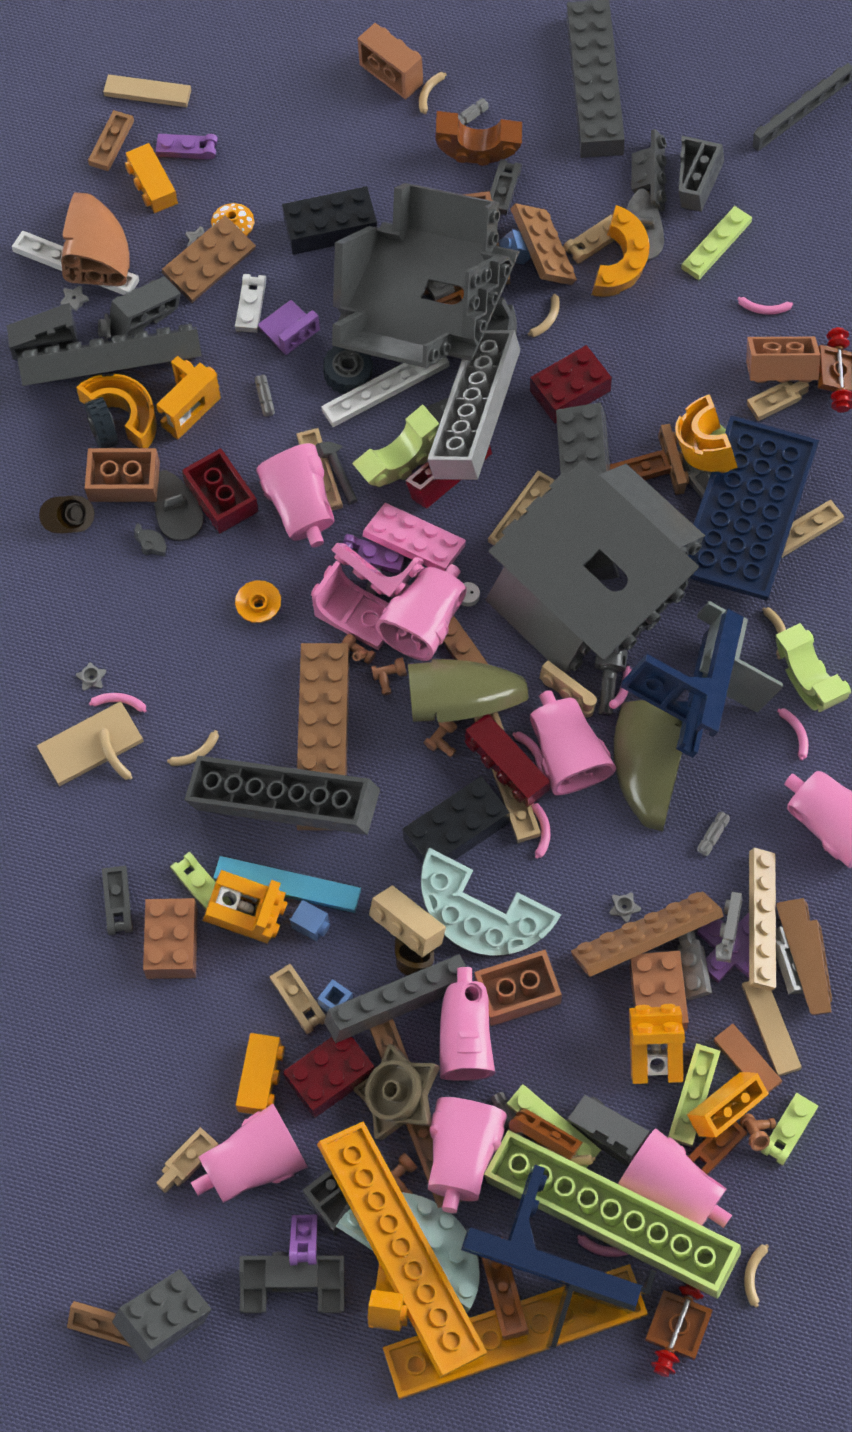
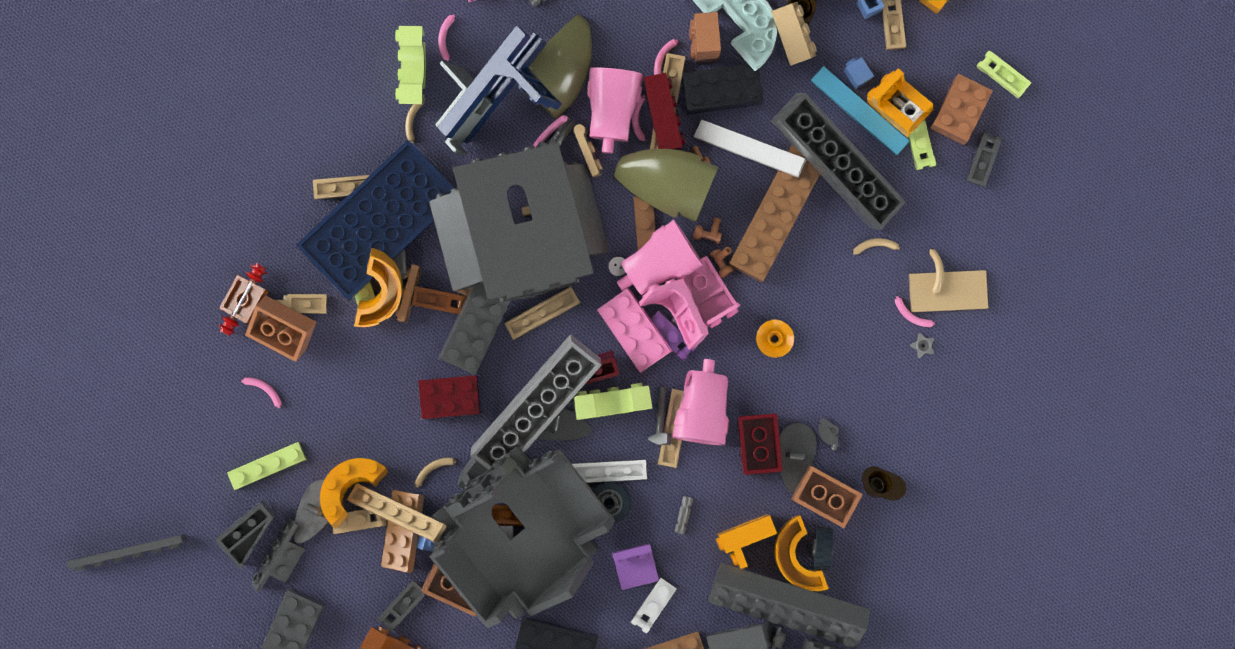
camera: 155 degrees left, 20 degrees up
(138, 1005) = (1004, 74): none -> yellowish green plate
(396, 771) = (750, 148): none -> white tile
(504, 857) = (705, 38): none -> nougat brick
(556, 245) = (397, 513): none -> tan plate

